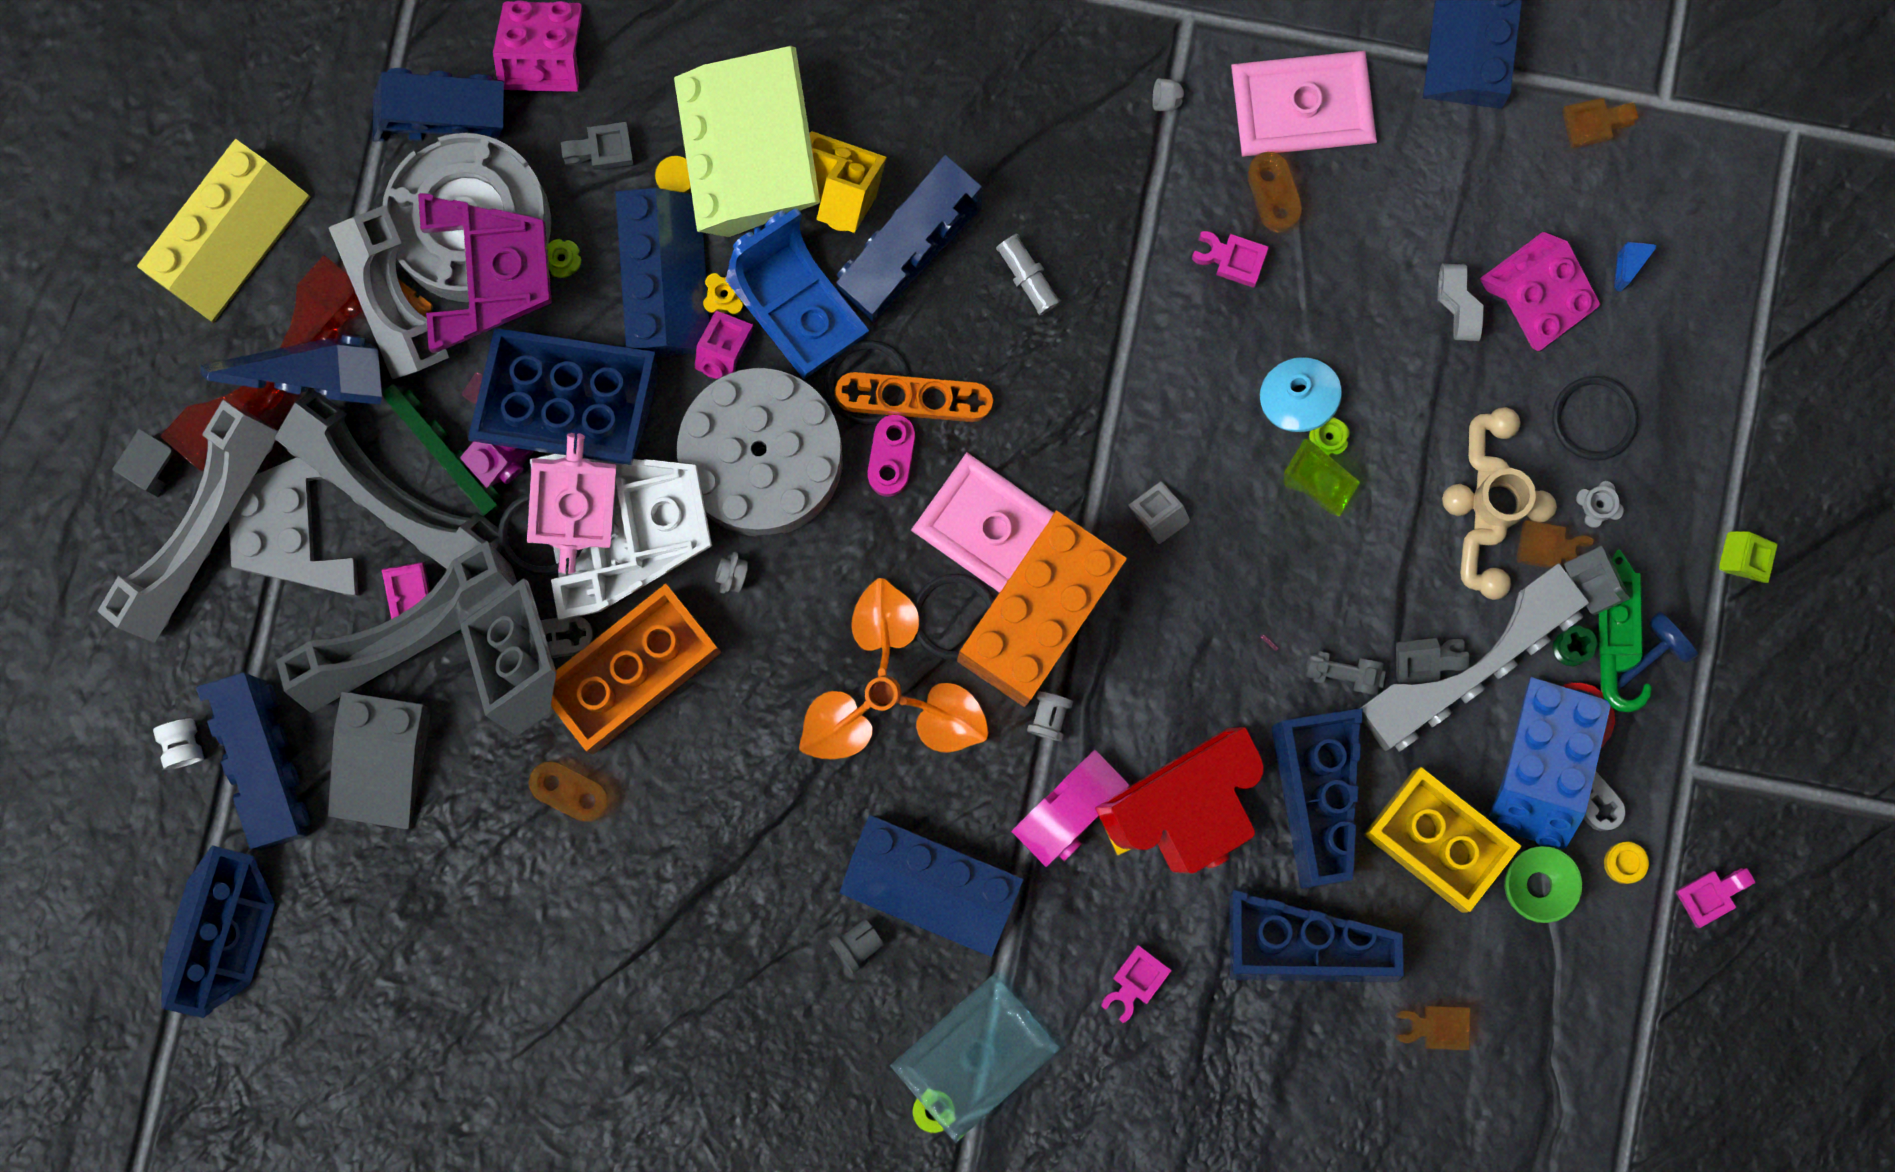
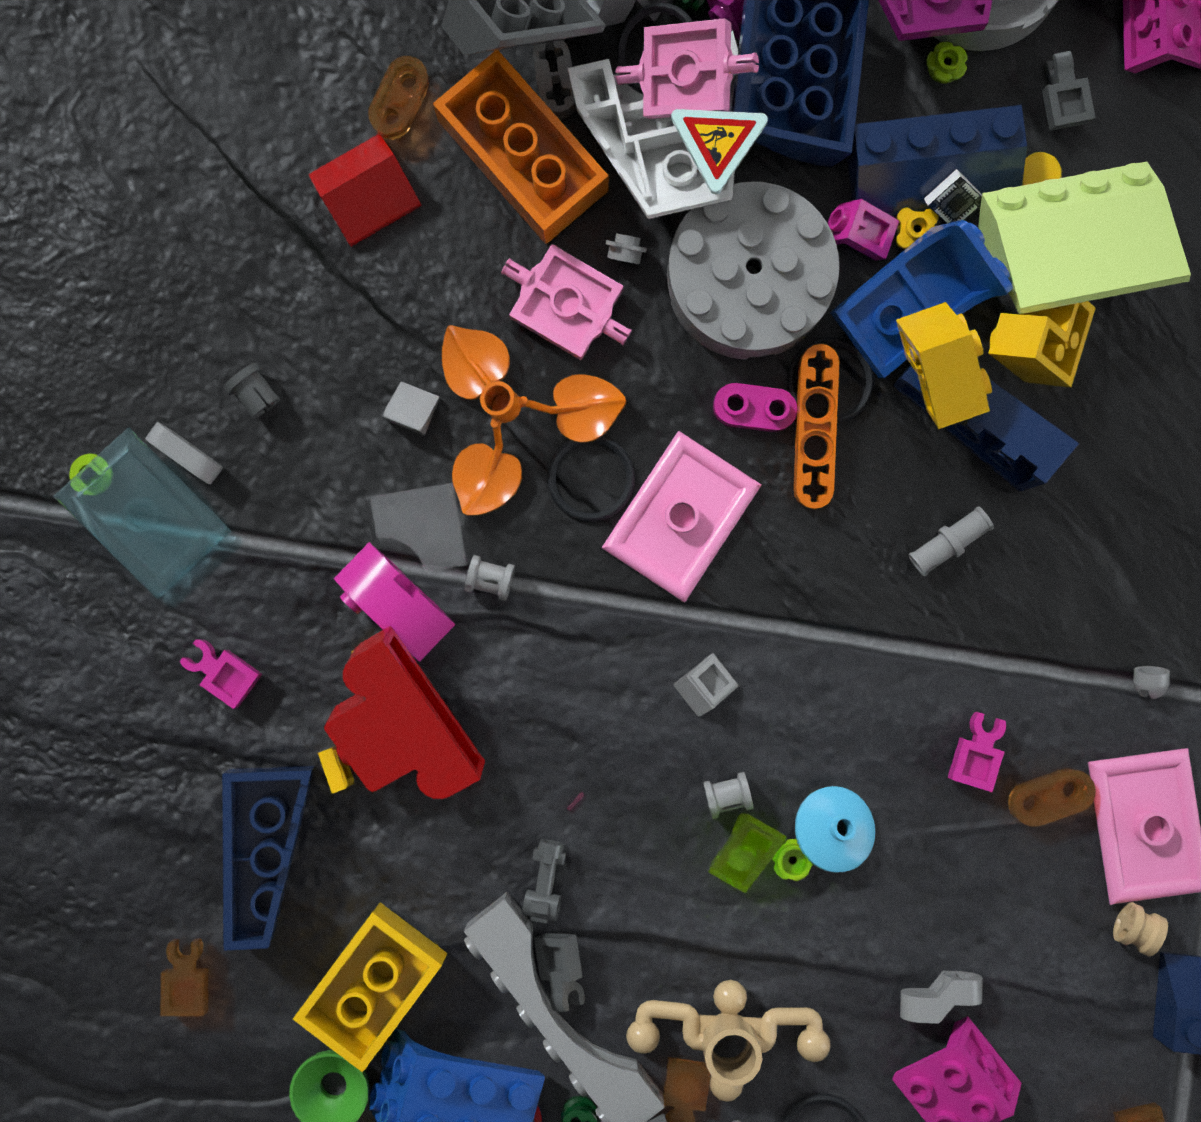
camera: 80 degrees right, 5 degrees up
(645, 475) = (718, 140): none -> piece
(656, 830) = (365, 189): none -> red slope
(699, 257) = (954, 198): none -> tile
(781, 633) = (566, 302): none -> bright pink plate
(864, 272) = (946, 364): none -> yellow brick
(879, 789) = (411, 408): none -> light grey slope
(915, 1015) = (184, 453): none -> light grey beam
(930, 885) = (316, 463): dark blue slope -> none
(991, 780) = (425, 521): none -> clear tile
(1040, 608) = (586, 559): orange brick -> none
(1231, 870) = (337, 773): none -> yellow tile
(1266, 494) = (728, 795): none -> light grey bush
(1320, 792) = (416, 859): dark blue wedge -> none
(1399, 116) = (1140, 929): none -> tan wheel

